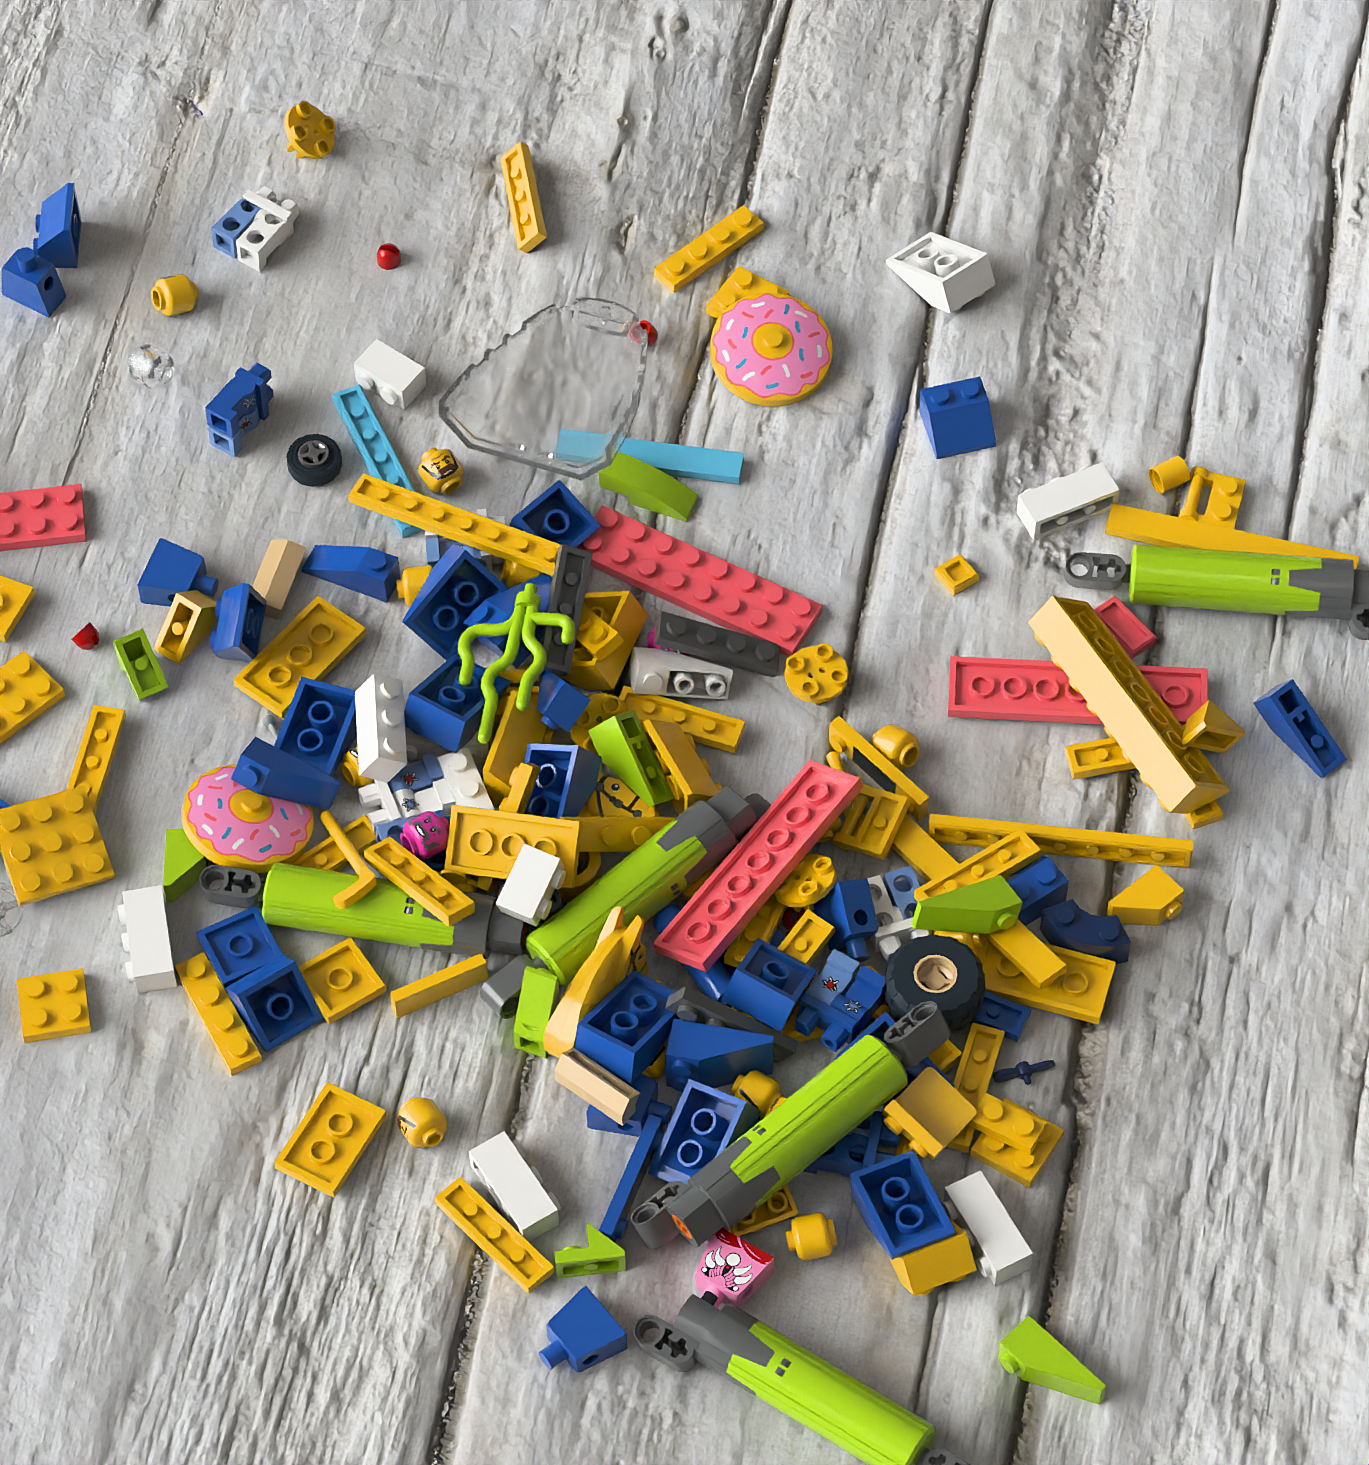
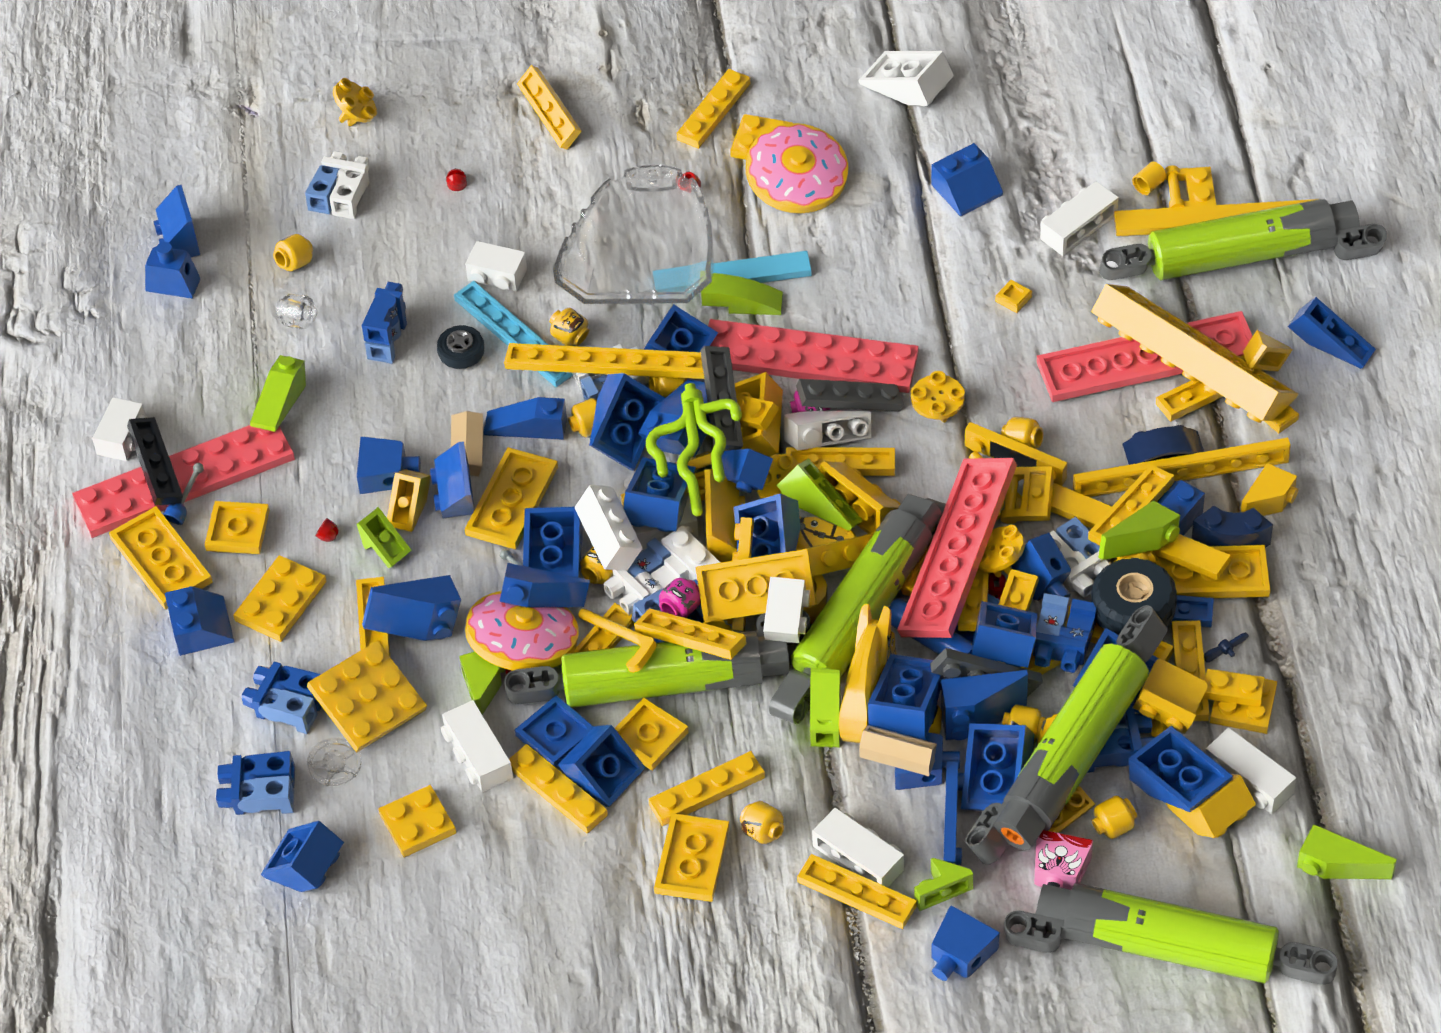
camera: 15 degrees left, 5 degrees down
(93, 460) = (280, 392): none -> lime slope
(137, 759) = (414, 608): none -> blue slope
(381, 1062) = (707, 787): none -> yellow plate
(439, 985) = (731, 714): yellow tile -> none
(1048, 807) = (1162, 444): none -> dark blue brick
(1125, 627) = (1164, 297): coral tile -> none

